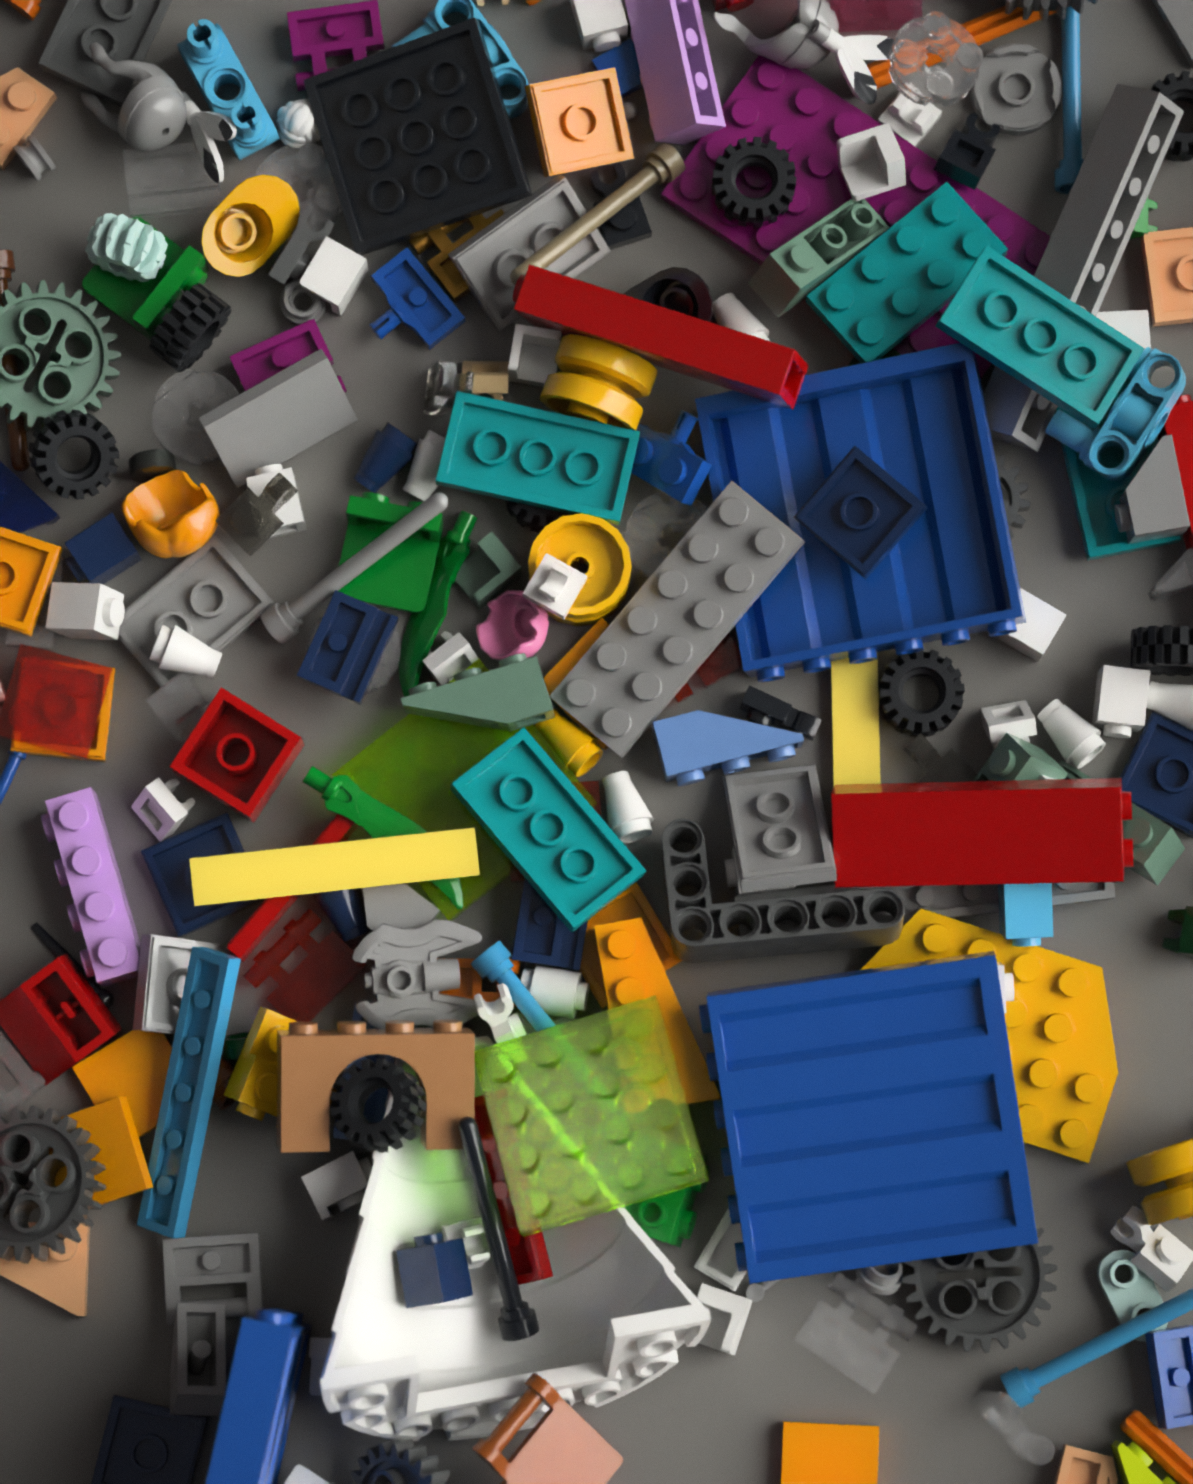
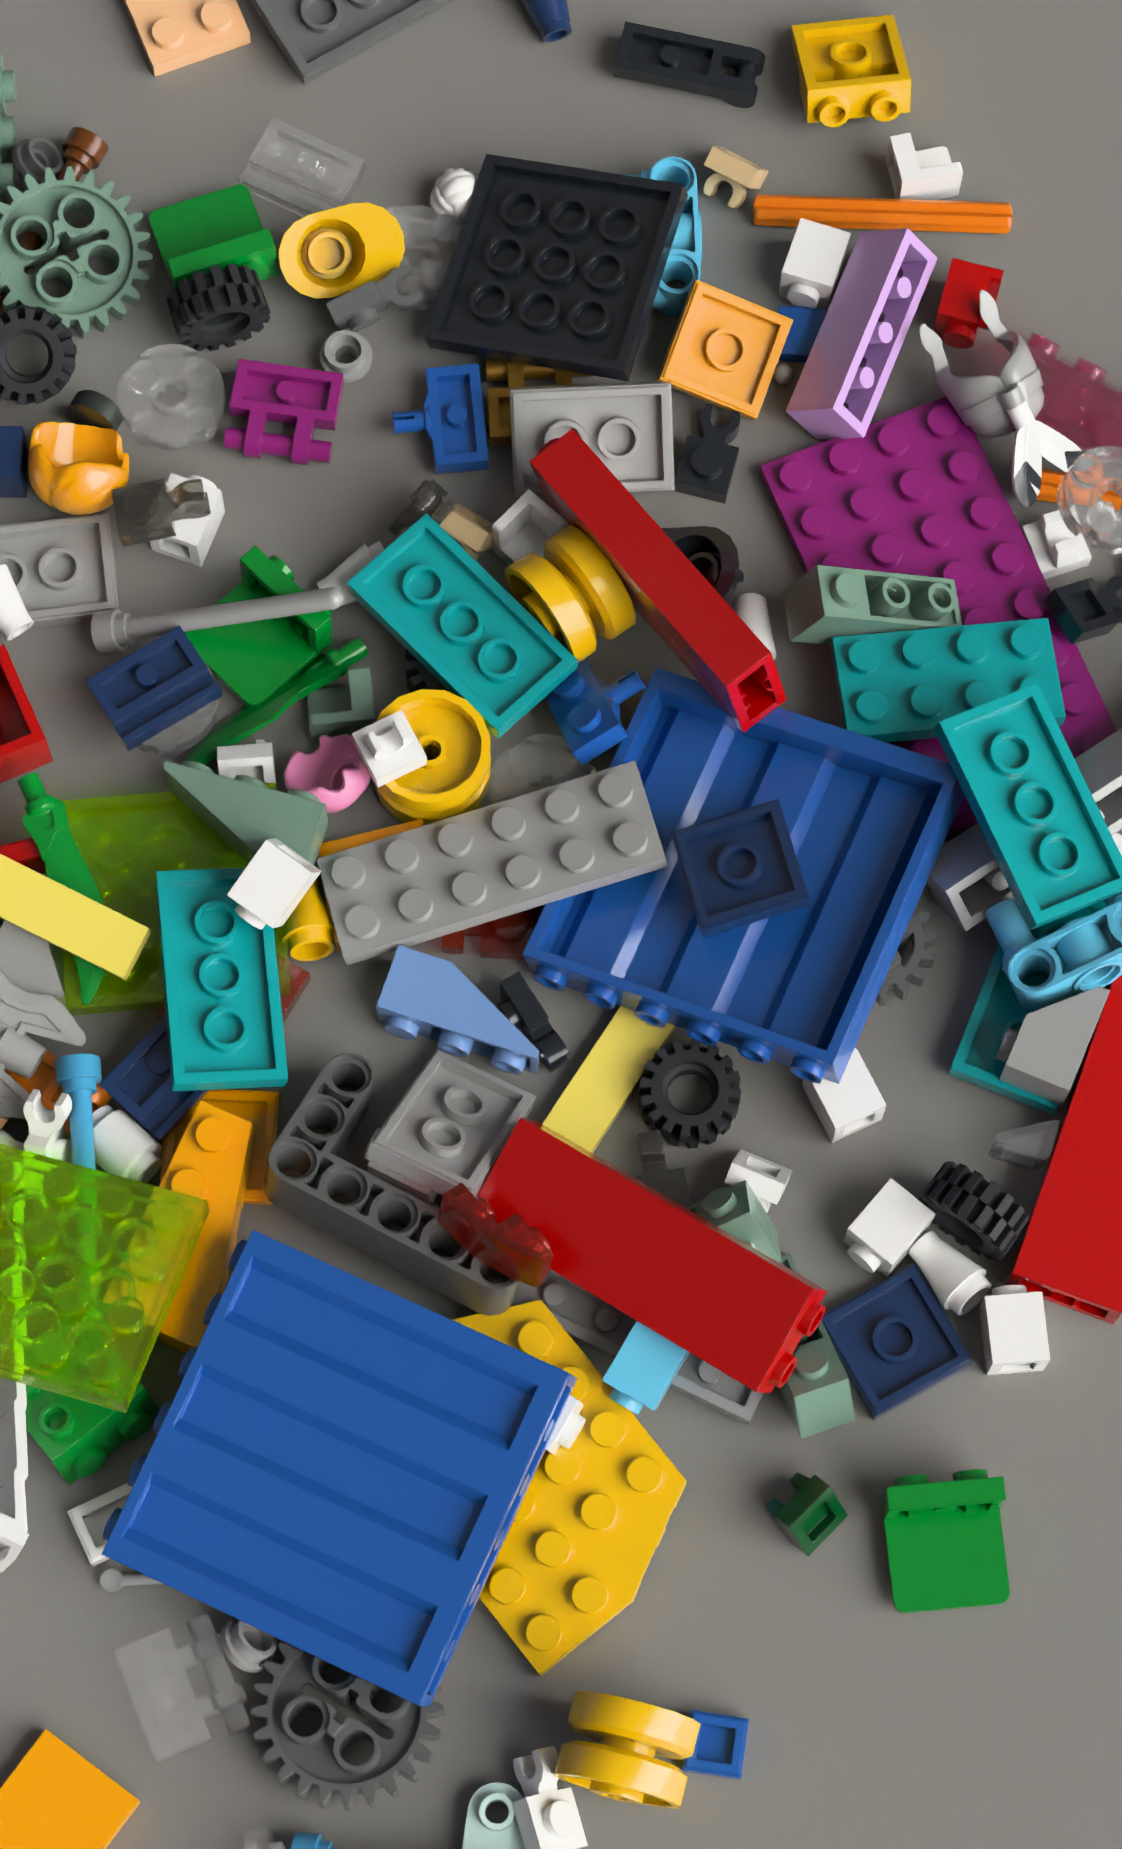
camera: 35 degrees right, 10 degrees down
(34, 157) = (188, 76): light grey bush -> none
(126, 247) = (209, 196): light aqua gear -> none
(158, 112) = (327, 96): light grey hair -> none
(215, 64) = (411, 96): medium azure piece -> none
(278, 417) = (243, 437): light grey tile -> none
(333, 32) = (547, 133): magenta plate -> none
(335, 274) = (392, 348): white panel -> none
(384, 457) = (320, 543): dark blue cone -> none
(545, 741) = (272, 885): none -> white brick
(625, 808) = (316, 1021): white cone -> none
(661, 166) = (777, 440): dark tan piece -> none
(727, 1316) = (57, 1581): white panel -> none
(753, 209) = (854, 473): black tyre -> none
(871, 162) = (983, 551): white panel -> none
(892, 889) = (507, 1247): none -> clear red slope
(1072, 734) = (816, 1234): white cone -> none

